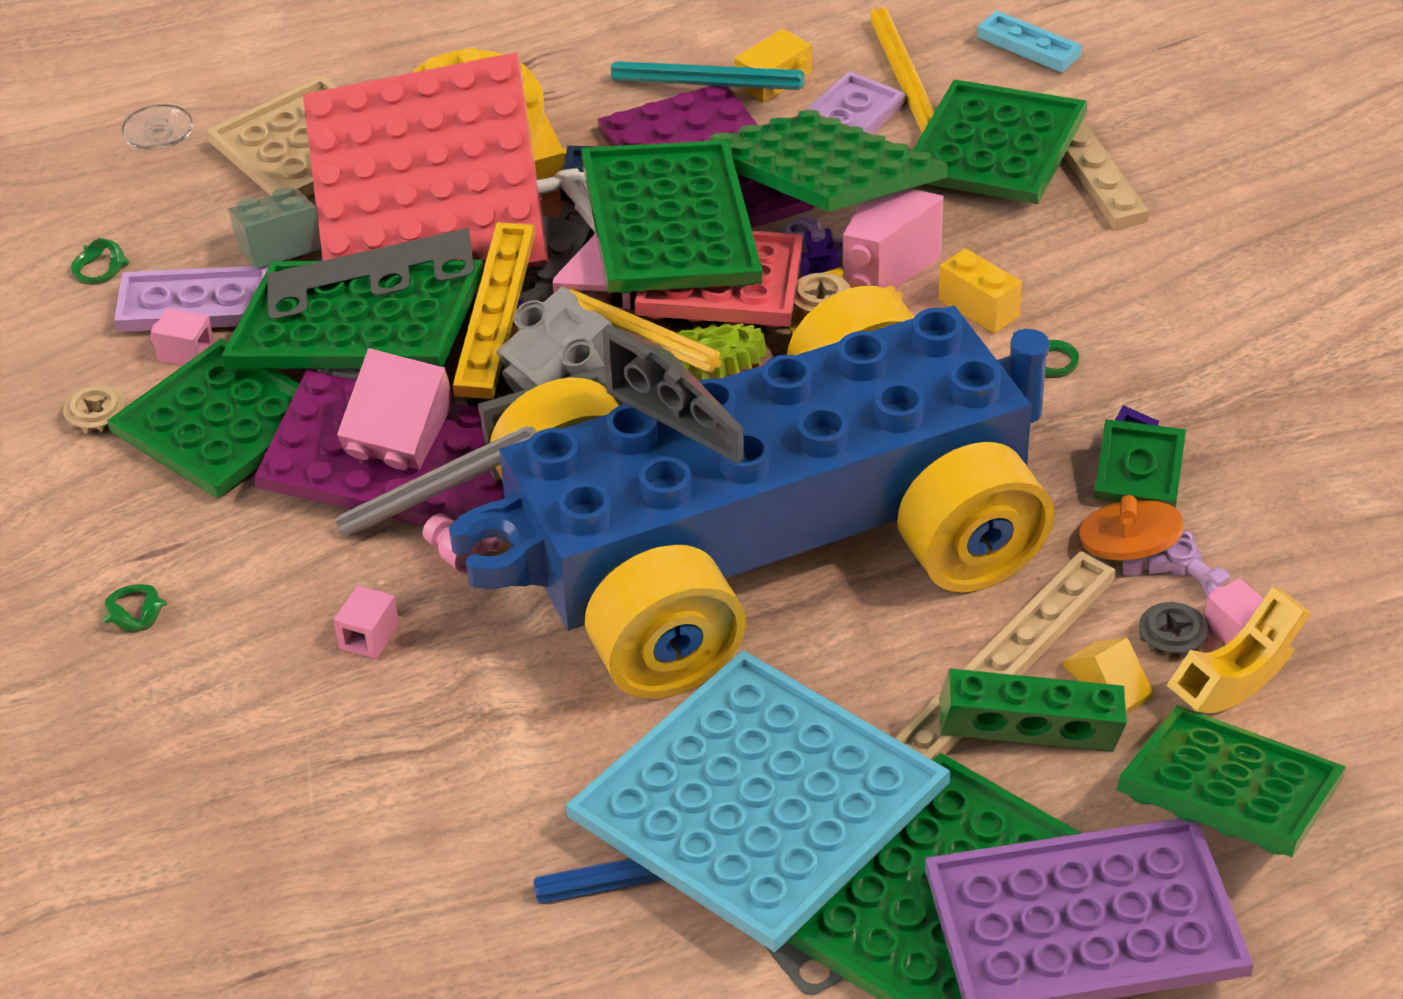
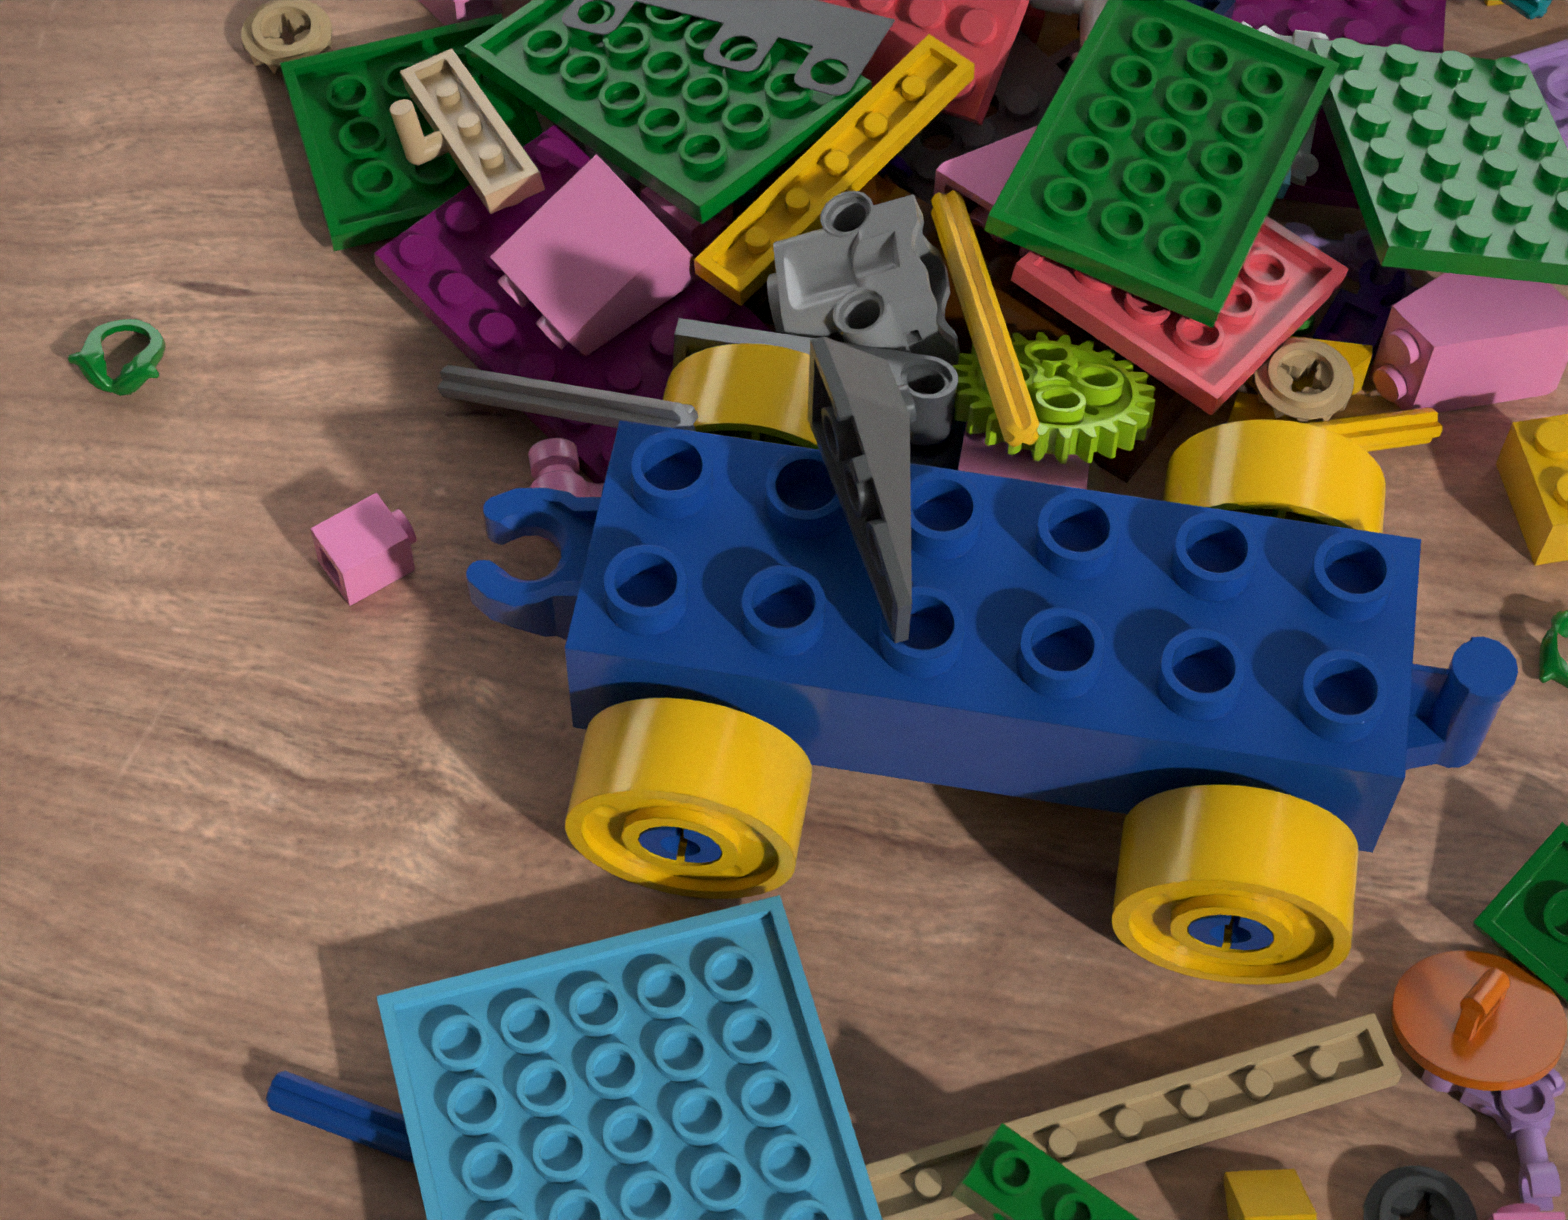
camera: 30 degrees right, 15 degrees up
(254, 388) = (465, 128): none -> tan plate

